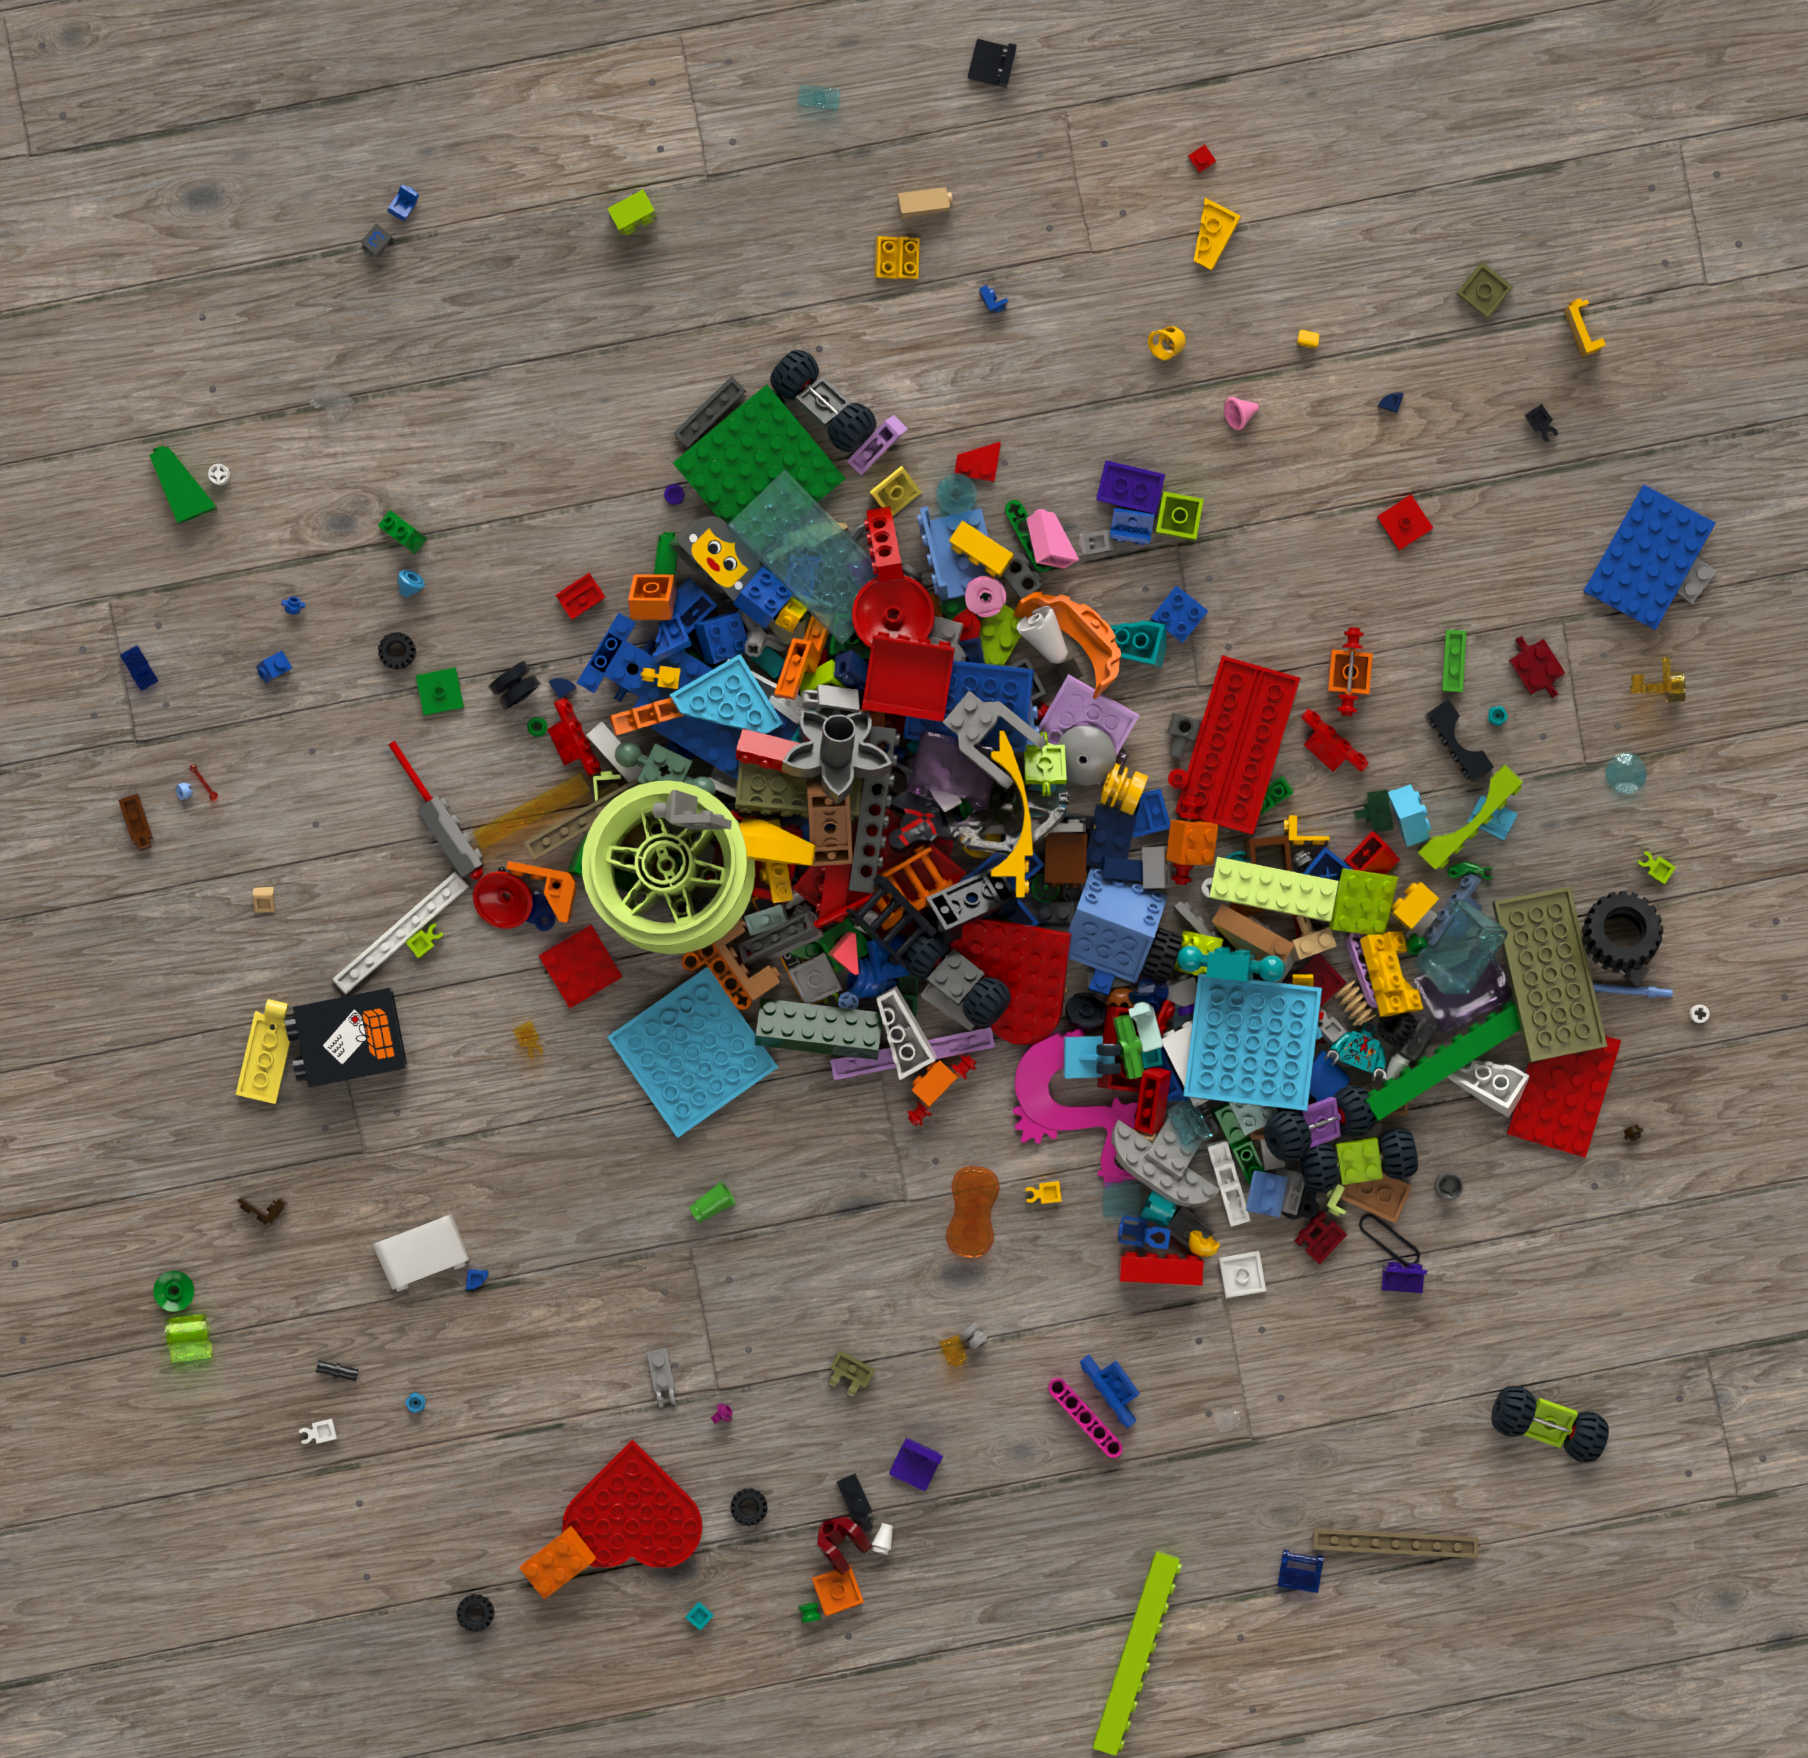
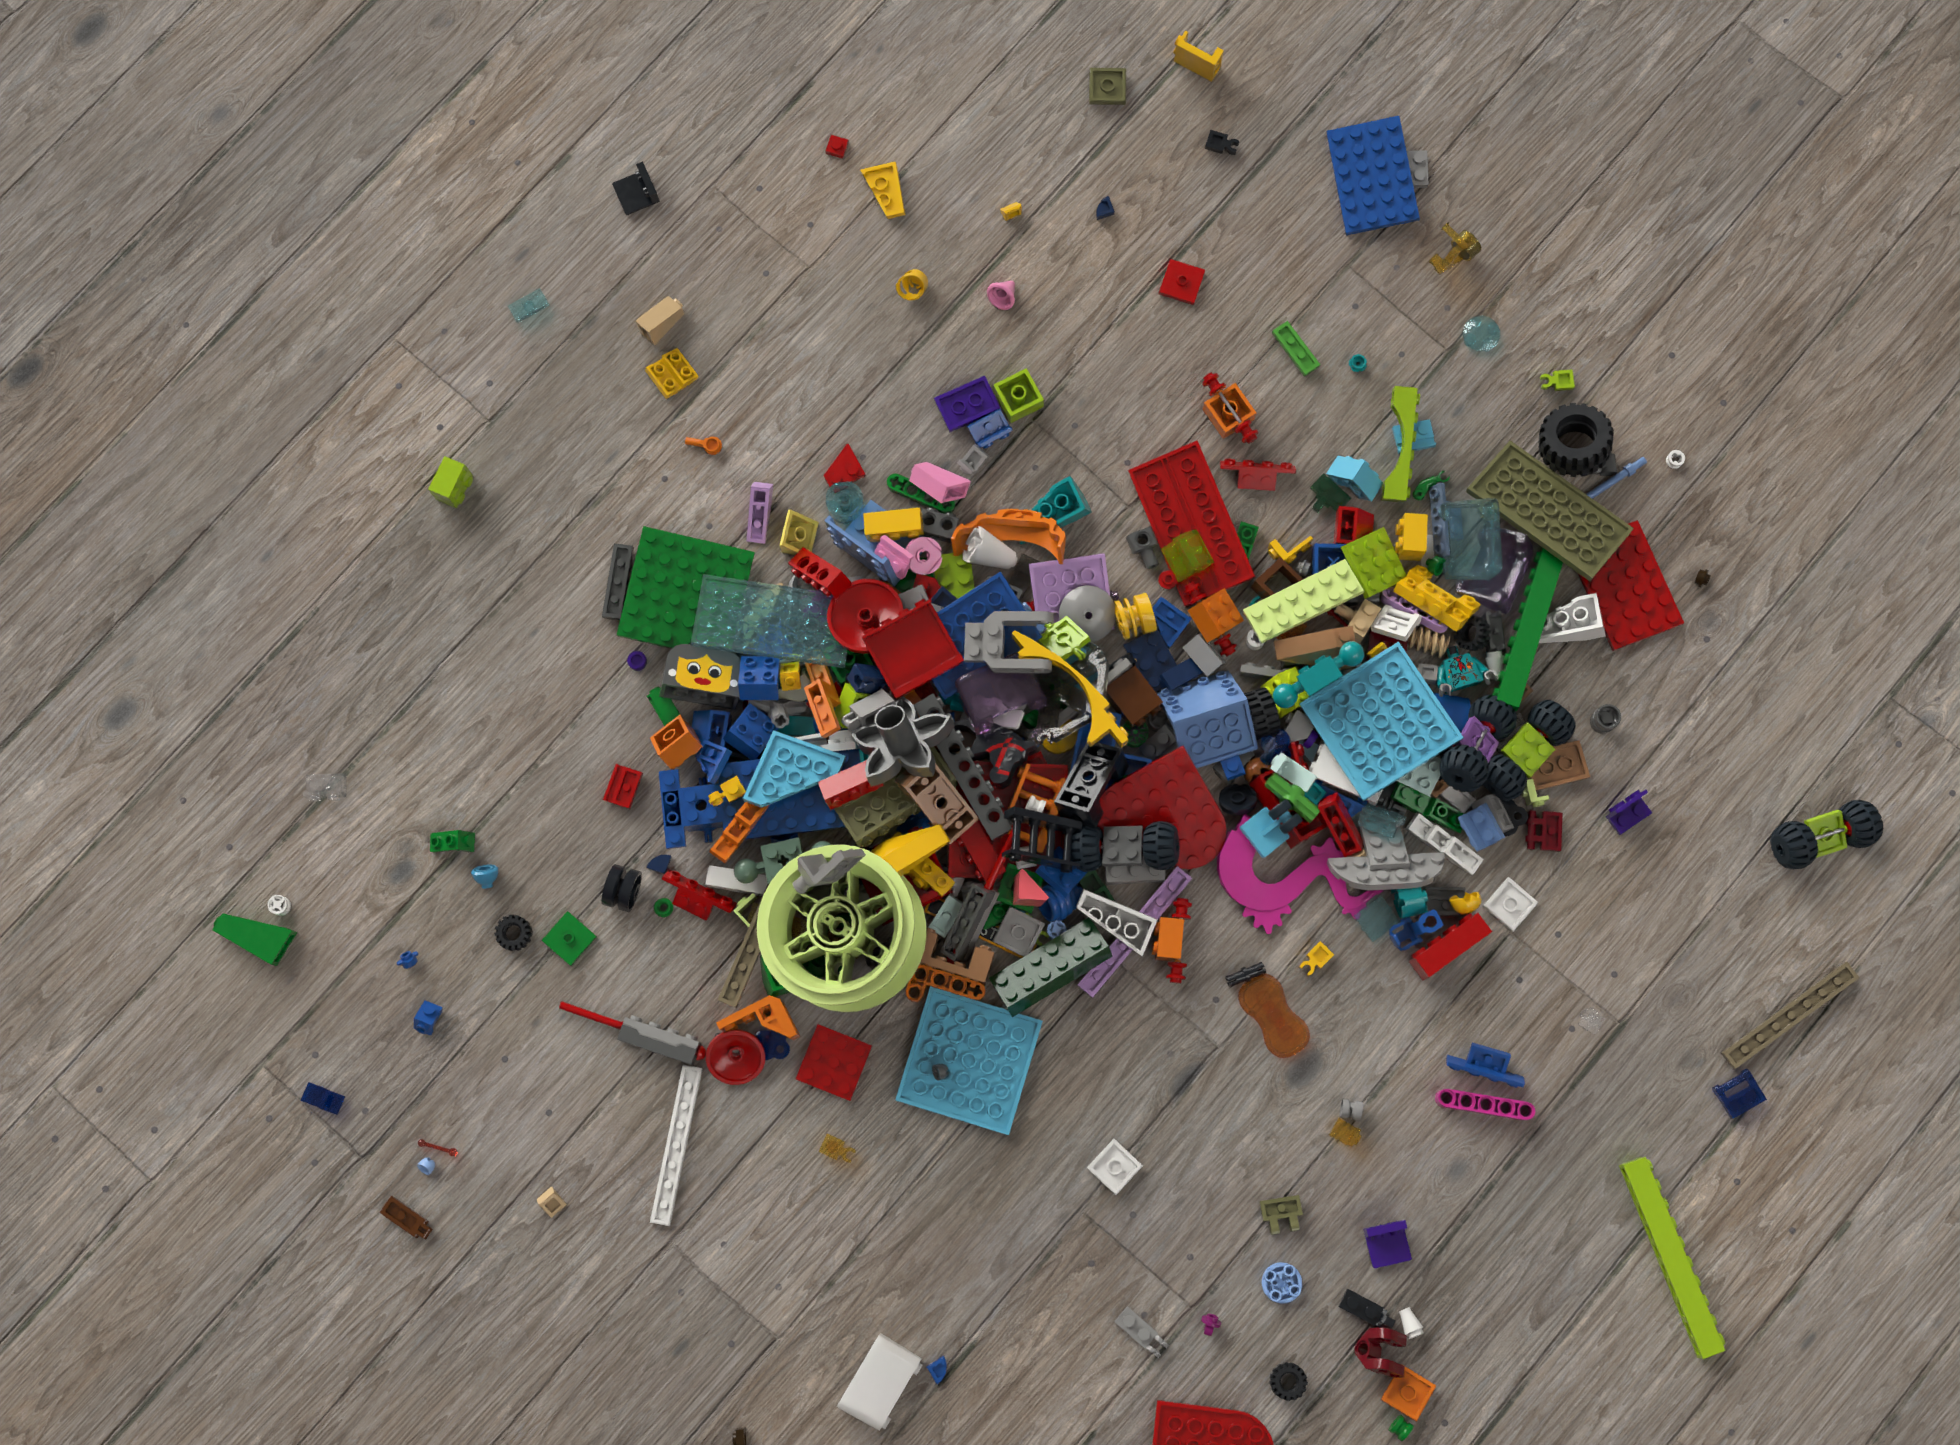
camera: 35 degrees left, 10 degrees down
(265, 1055) = (641, 1321): light yellow hinge -> none
(347, 1038) = (694, 1258): black brick -> none
(376, 241) = (274, 645): dark grey brick -> none
(403, 203) = (275, 603): blue bracket -> none
(422, 942) = (698, 1138): lime plate -> none
(531, 811) = (706, 974): clear yellow plate -> none
(661, 1043) = (940, 1071): none -> dark grey hinge
(712, 1202) = (1074, 1164): bright green plant -> none
(724, 782) = (838, 837): white bracket -> none
(744, 1230) = (1114, 1166): none -> white plate
(805, 1427) = (1281, 1282): none -> light blue tile
(849, 422) = (726, 509): black plate -> none
(881, 351) = (711, 445): none -> orange plate
(908, 888) = (1035, 805): none -> white wheel
(958, 578) = (899, 557): none -> bright pink plate
(975, 1160) = (1245, 974): none -> black pin
(988, 297) = (759, 350): blue bracket -> none
(1179, 614) = (1074, 461): blue brick -> none
(1210, 771) = (1187, 555): none -> clear neon green brick
(1333, 969) = (1395, 627): none -> white plate
(1395, 1233) = (1595, 785): black piece -> none
(1473, 763) = (1324, 394): black arch -> none
(1536, 667) = (1357, 309): dark red plate -> none

